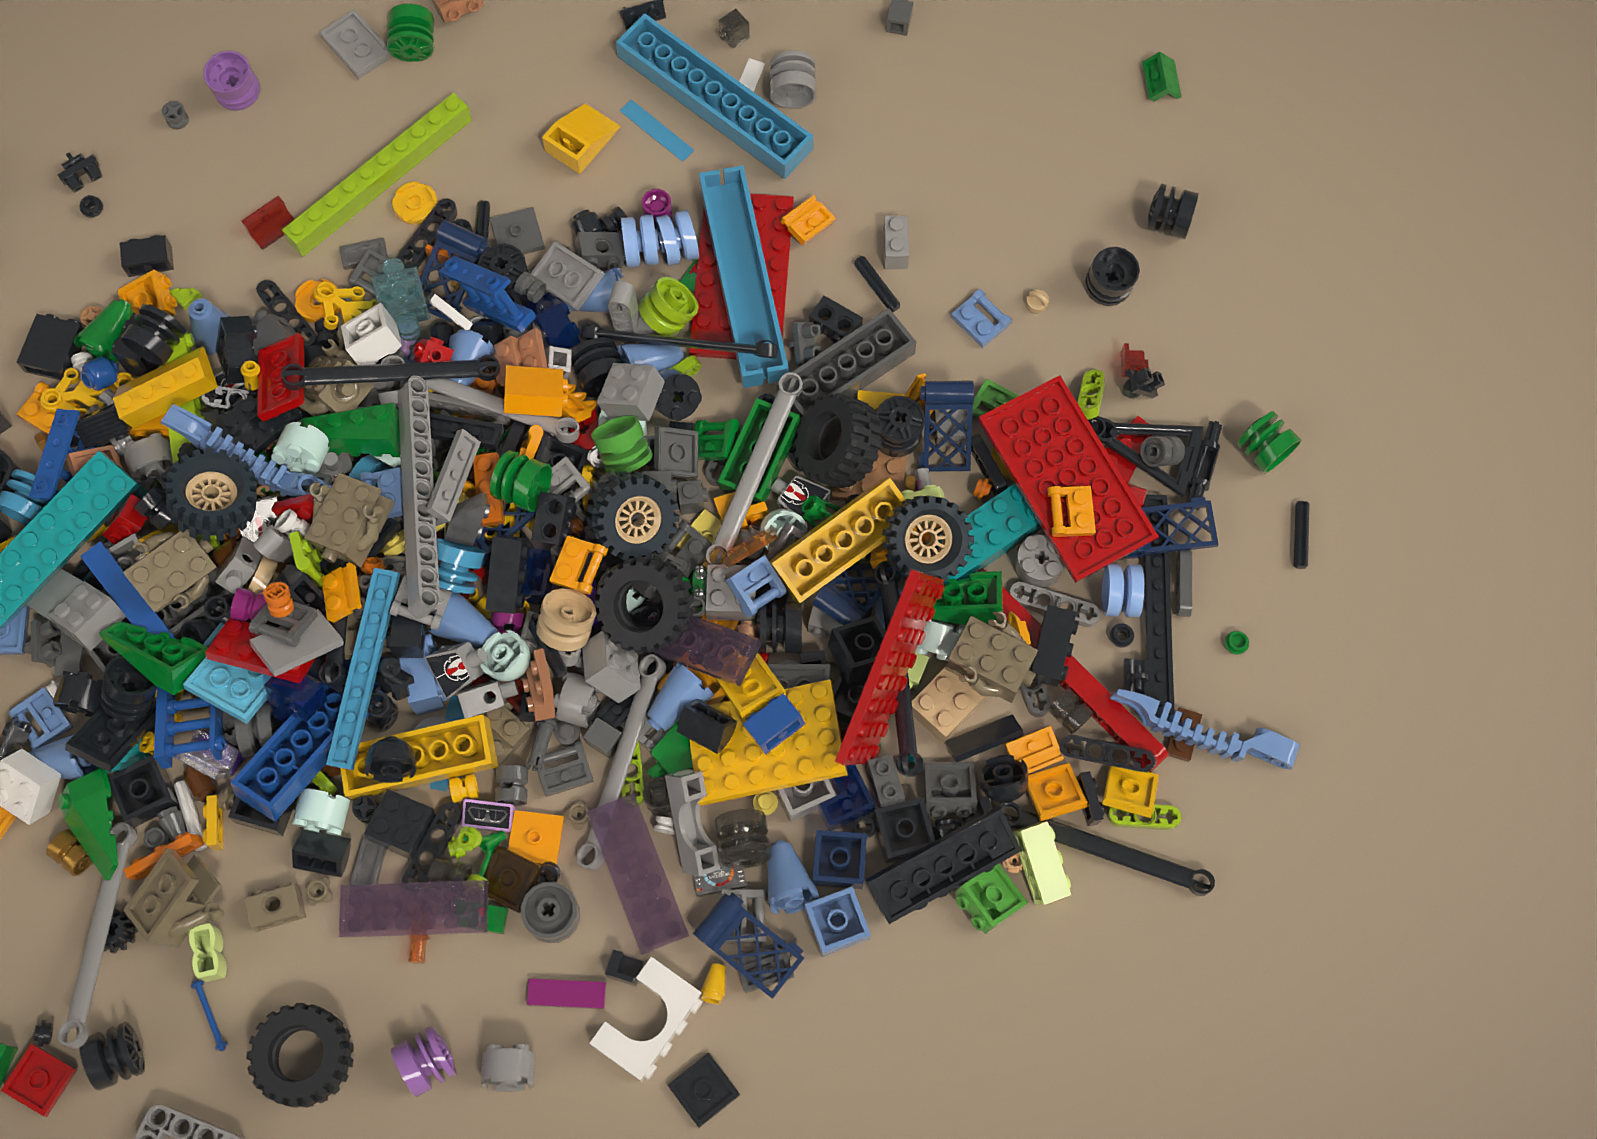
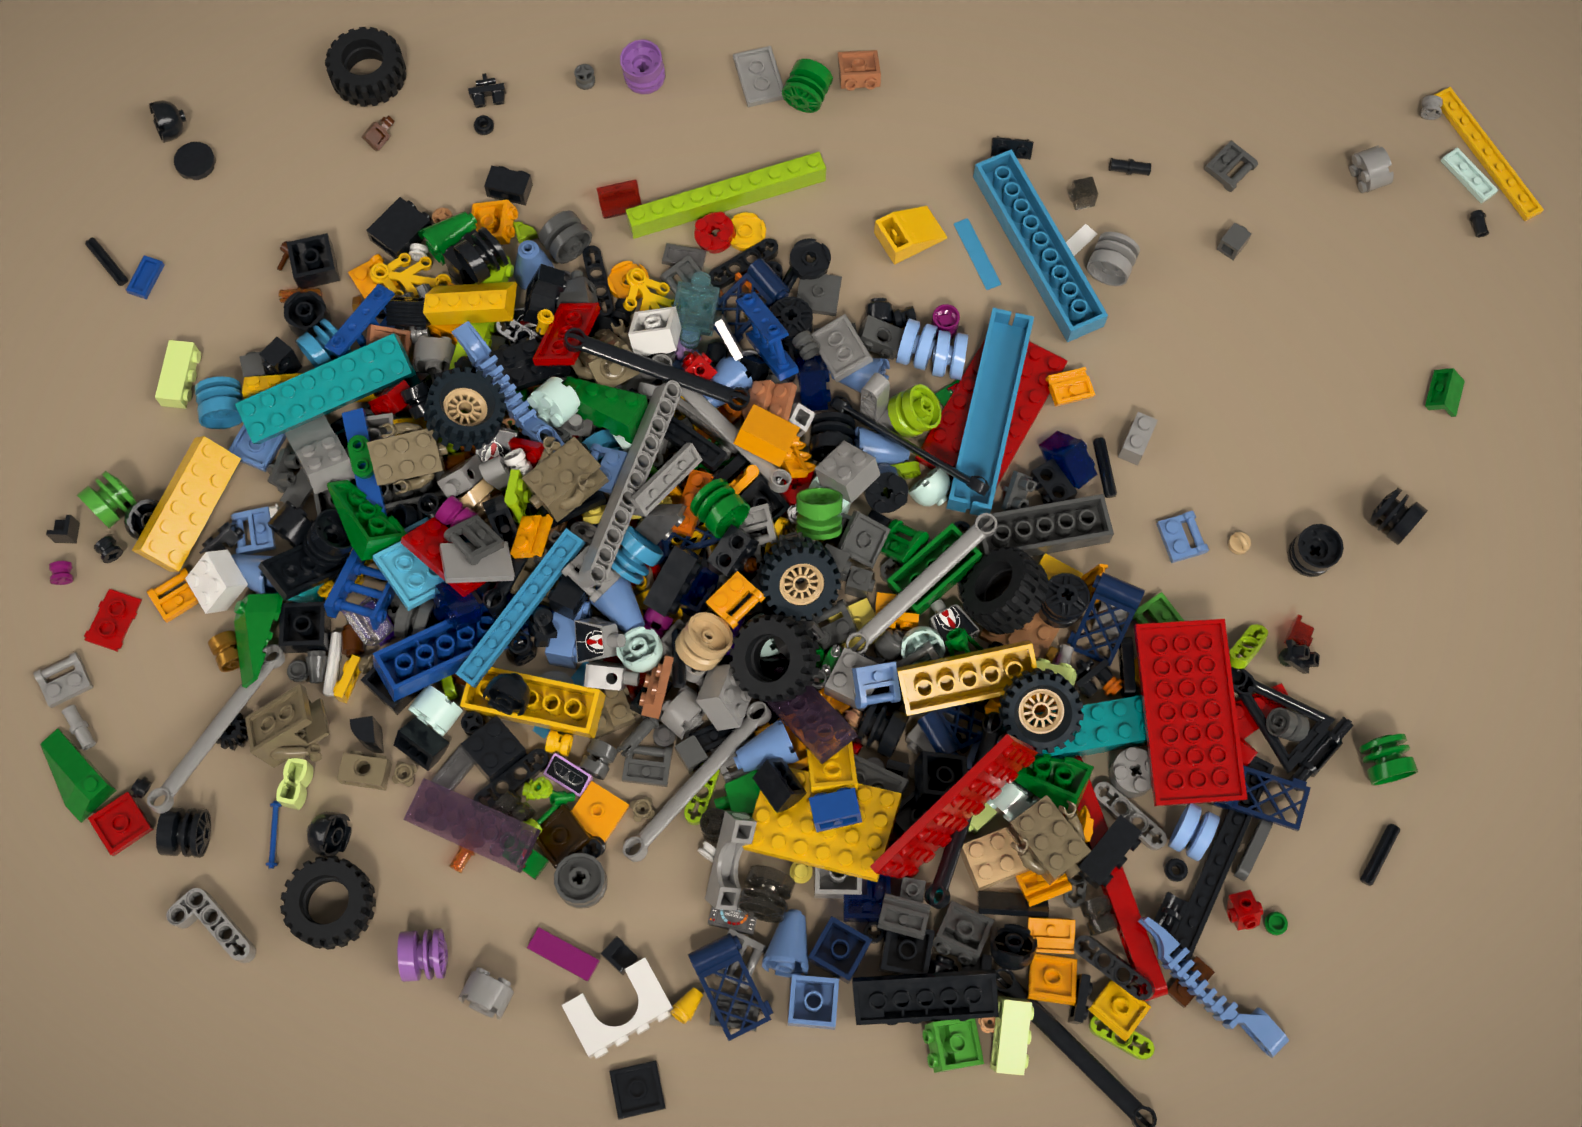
camera: 25 degrees right, 0 degrees up
(99, 373) = (426, 267): blue head -> none
(121, 590) = (360, 456): none -> green plate
(183, 845) = (315, 686): orange plate -> none
(231, 282) = (565, 237): none -> dark grey wheel
(261, 867) = (368, 733): none -> black brick
(267, 986) = (329, 833): none -> black cylinder
(278, 599) = (477, 520): orange wheel -> none
(371, 563) = (569, 523): orange plate -> none
(372, 212) = (709, 223): none -> red plate
(496, 191) = (805, 269): none -> black plate
(637, 874) = (666, 882): clear purple plate -> none
(720, 375) = (931, 489): none -> light aqua cylinder
(742, 550) = (879, 649): clear orange plate -> none
(839, 285) = (1070, 456): none -> clear blue brick
(887, 796) = (904, 916): none -> dark grey plate
(964, 480) = (1100, 671): none -> black hips
(1002, 713) = (1038, 890): none -> light orange plate
(1079, 511) = (1185, 746): light orange plate -> none
(1202, 643) = (1244, 910): none -> red brick

